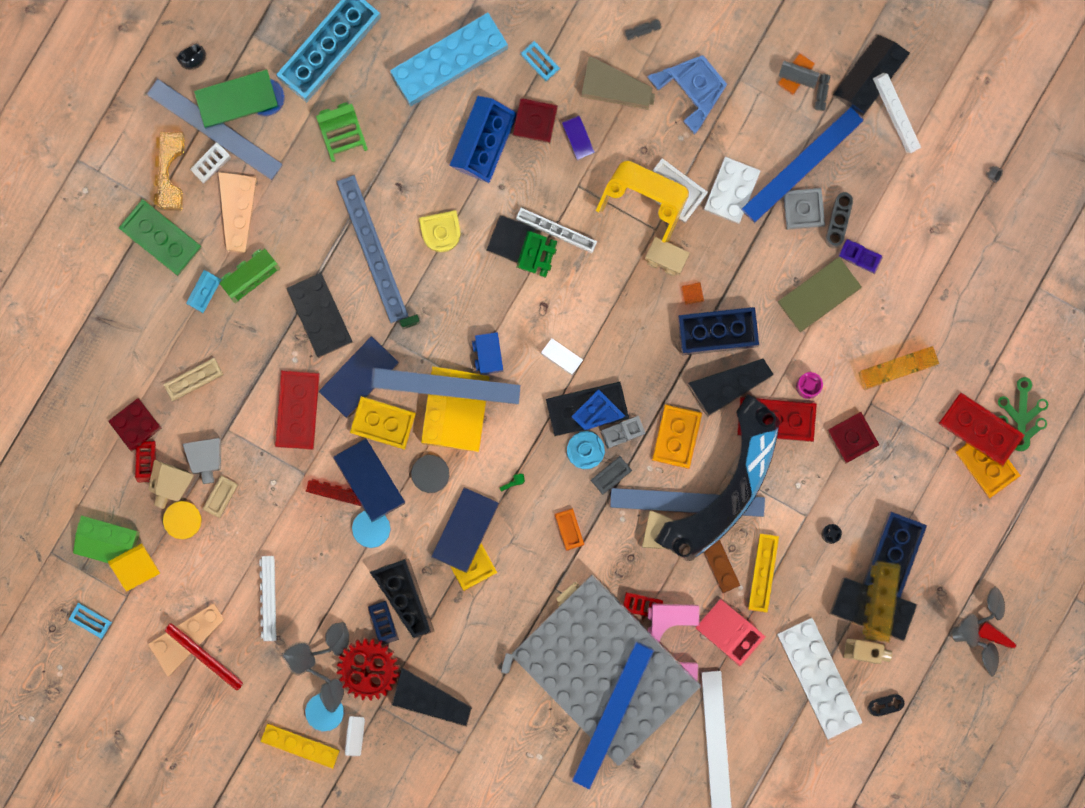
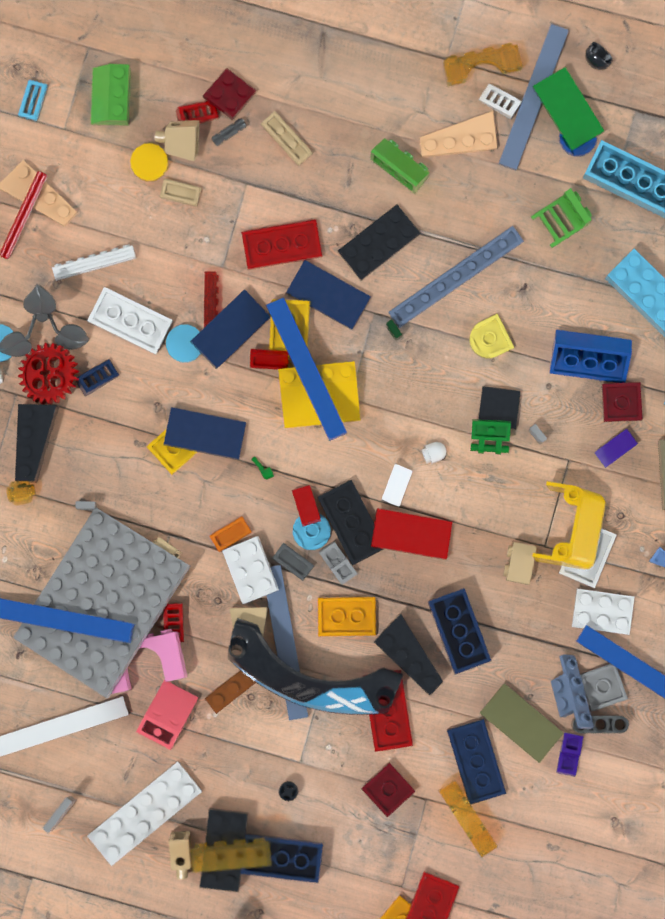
camera: 80 degrees right, 0 degrees up
(134, 567) = (92, 127): yellow tile -> none
(160, 237) = (415, 72): green tile -> none
(172, 434) = (228, 132): none -> dark grey axle
(203, 291) = (373, 125): medium azure plate -> none
(204, 458) = (213, 167): light grey torso -> none
(335, 576) = (130, 320): none -> white plate
(405, 597) = (126, 391): black wedge -> none
(408, 449) = (268, 359): none -> red tile
(428, 414) = (306, 369): none -> blue tile
(430, 474) = (251, 387): dark grey tile -> none
(445, 386) = (337, 375): sand blue tile -> none
(478, 725) = (20, 492): none -> clear yellow head
(489, 353) = (381, 413): blue brick -> none
(538, 313) = (434, 452): none -> white piece
(546, 208) = (537, 434): none -> light grey tile
(556, 230) = (519, 449): white piece -> none
(560, 448) = (306, 505): none -> red tile
(597, 412) = (350, 532): blue wing -> none
(609, 518) = (250, 570): none -> white plate
(613, 354) = (411, 534): none -> red tile
(692, 293) = (491, 598): clear orange tile -> none
(763, 573) = (233, 733): yellow plate -> none
(801, 760) = (59, 814): none -> light grey tile
(803, 240) = (570, 693): none -> sand blue bracket
(809, 385) = (428, 734): dark pink wheel -> none
(846, 347) = (476, 761): none -> dark blue tile
(884, 700) = (130, 888): black beam -> none

